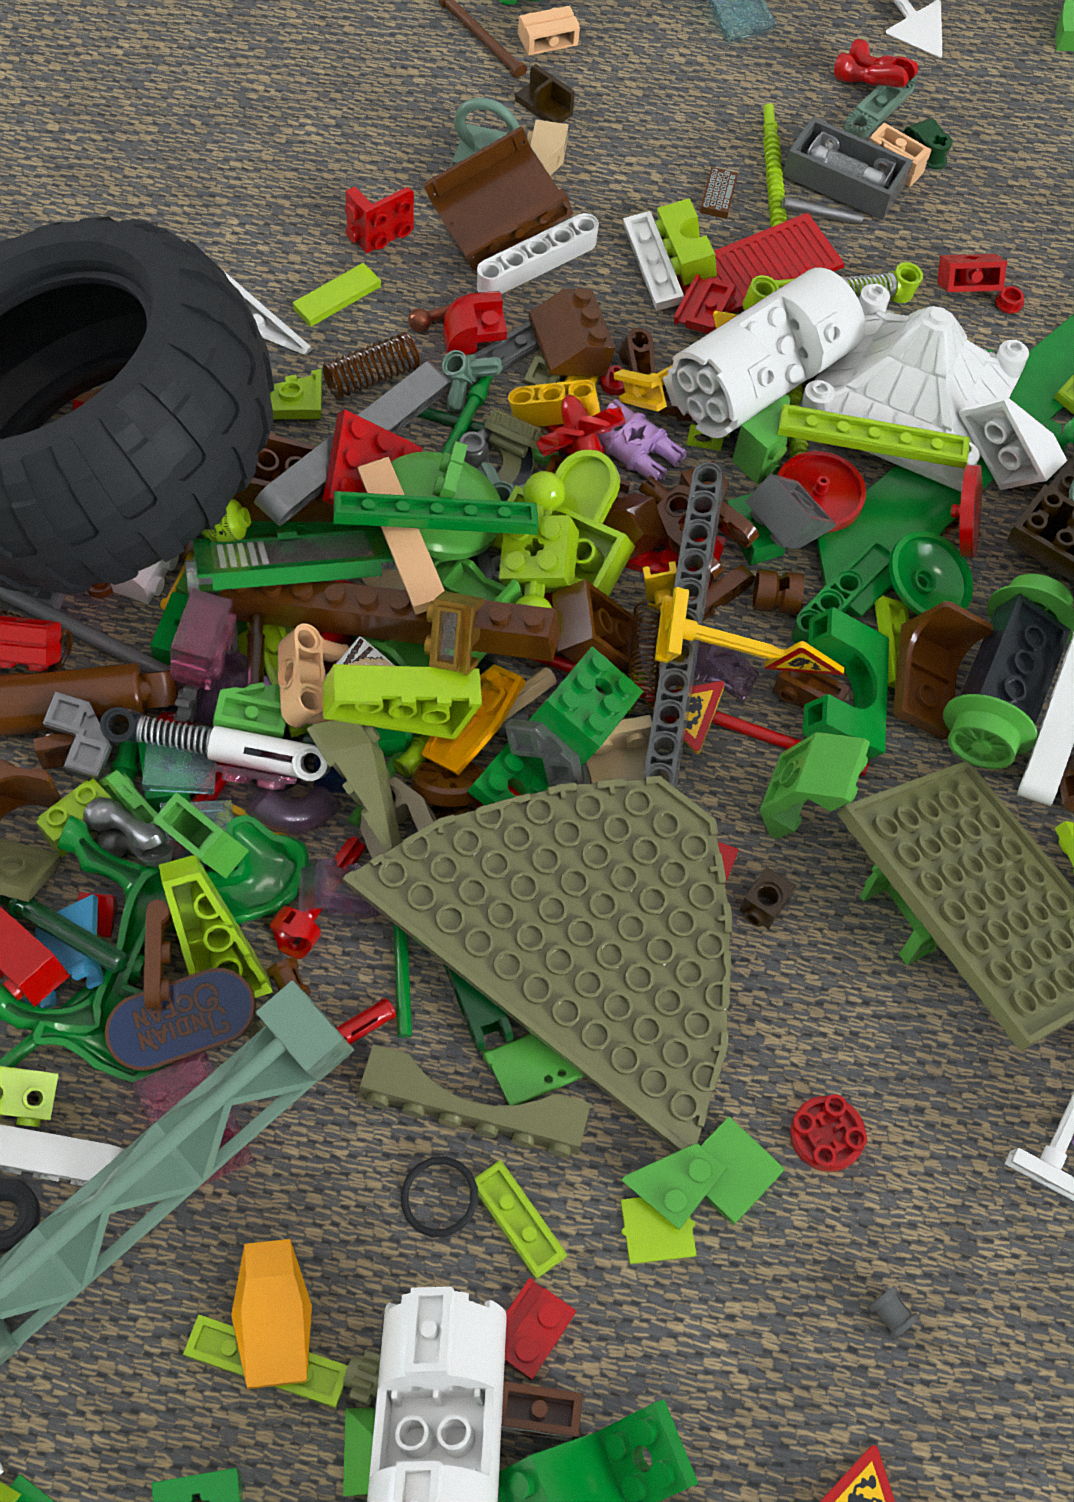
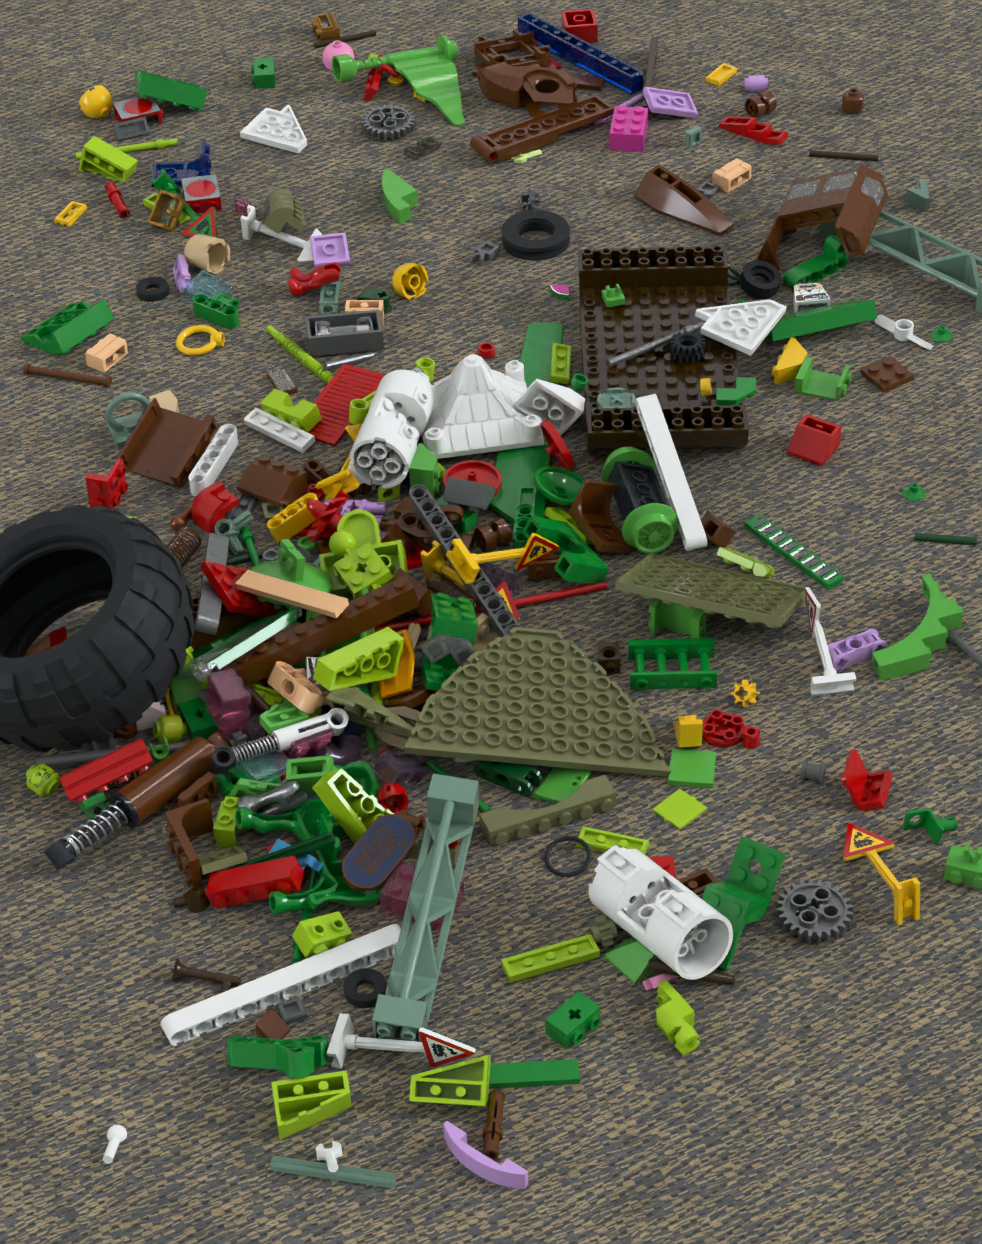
camera: 30 degrees left, 20 degrees down
(78, 719) = (193, 772): flat silver tile -> none
(84, 651) = (159, 752): none -> bright green piece
(137, 619) = (169, 727): none -> lime head
(156, 954) = (345, 824): reddish brown plate -> none
(272, 1315) = (535, 937): light orange piece -> none
(435, 513) = (301, 574): green tile -> none
(453, 632) = (365, 612): pearl gold window -> none
(512, 433) = (295, 536): olive piece -> none
(546, 96) = (138, 381): dark brown panel -> none
(677, 1182) = (672, 783): bright green wing -> none
(692, 86) = (216, 339): none -> yellow piece
(701, 302) = (330, 433): red plate -> none
(729, 45) = (218, 310): none -> green piece
(770, 1106) = (688, 731): none -> yellow slope
(815, 769) = (587, 574): bright green slope -> none
(846, 1187) = (751, 737): none -> red hose
(874, 436) = (481, 436): lime tile -> none
(875, 955) = (672, 649): none -> green fence
(905, 1098) = (738, 693): none -> yellow gear
(934, 39) = (330, 249): none -> lavender tile
(948, 1405) = (866, 789): none -> red bracket
(972, 272) = (456, 347): red brick -> none
(996, 134) = (410, 277): none -> yellow cylinder

